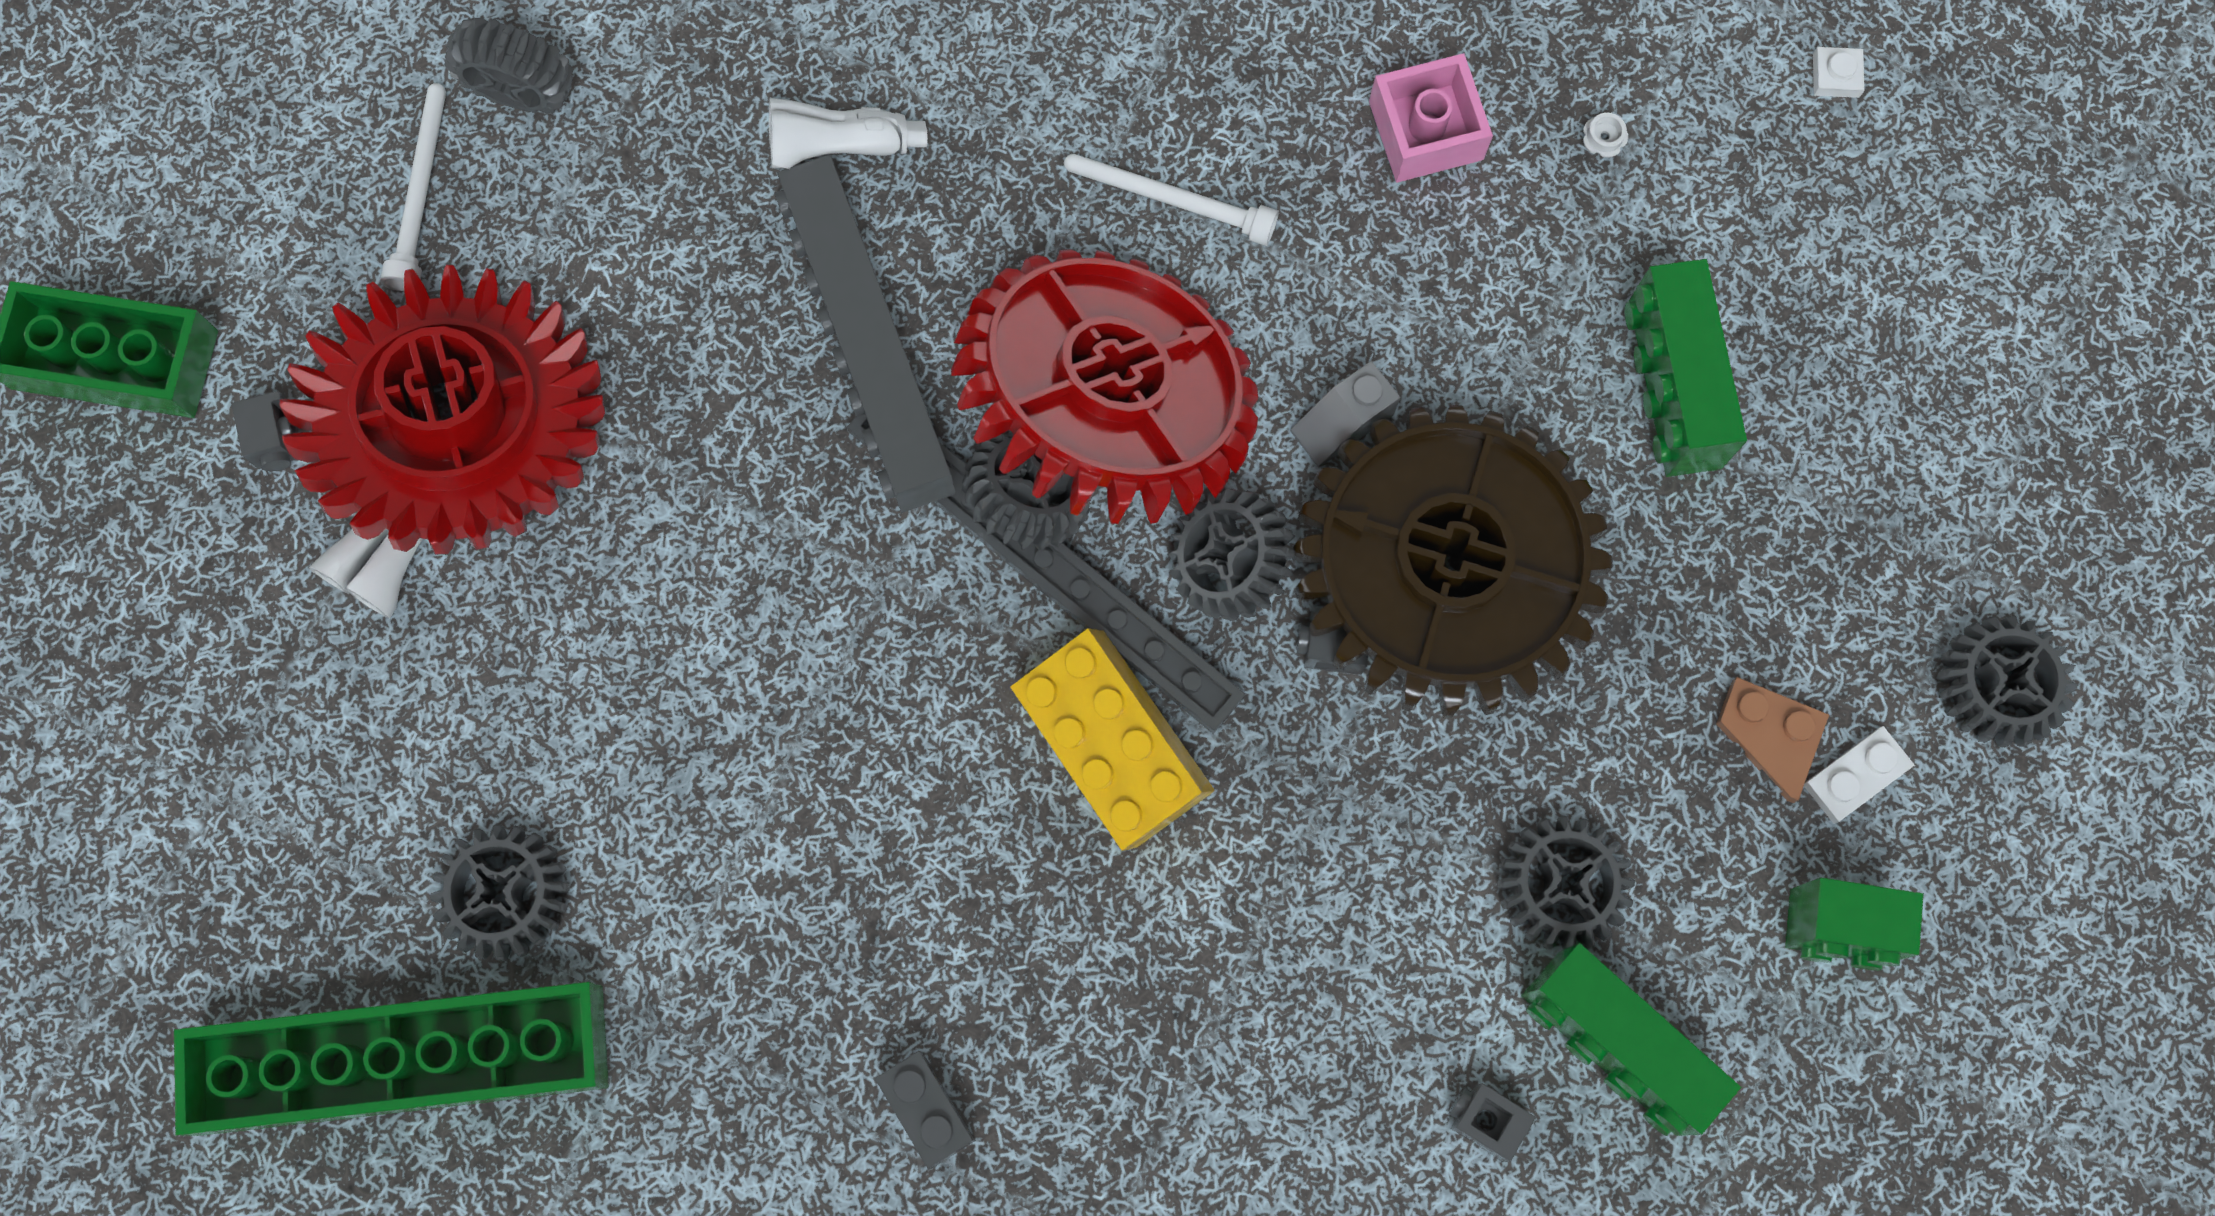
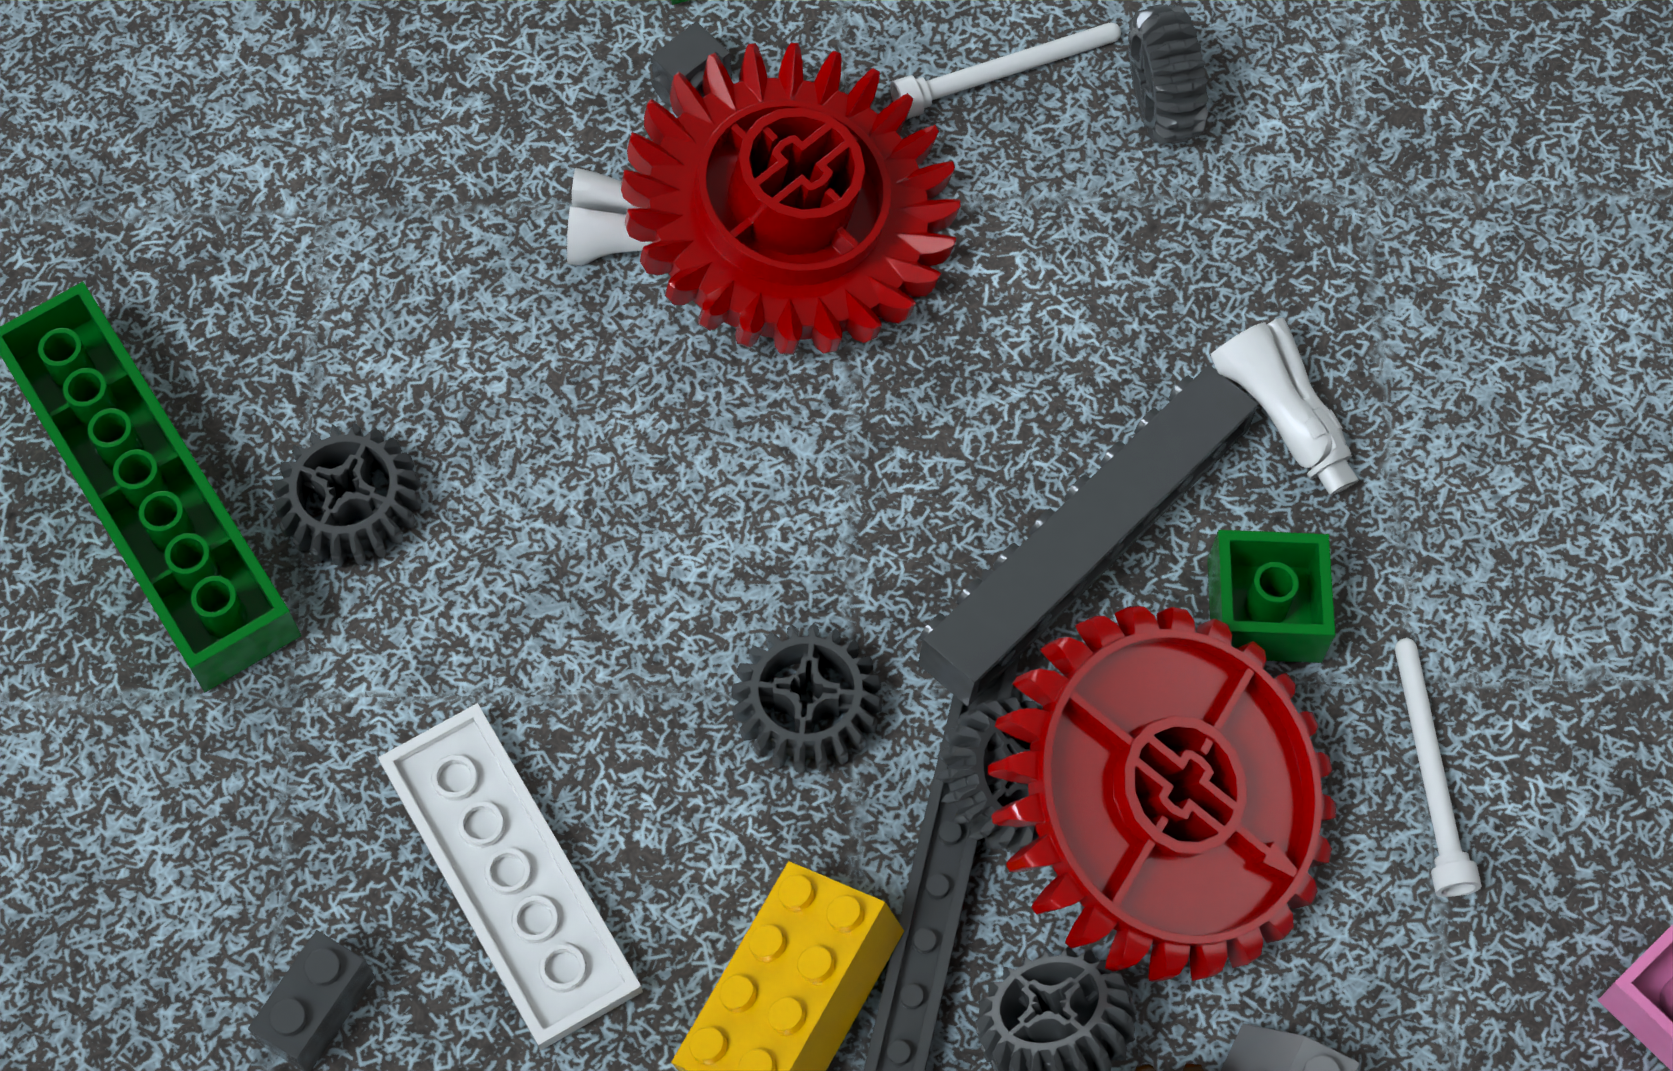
camera: 65 degrees right, 10 degrees down
(847, 588) = (827, 700): none -> dark grey gear
(896, 908) = (510, 876): none -> white plate
(985, 227) = (1274, 592): none -> green brick

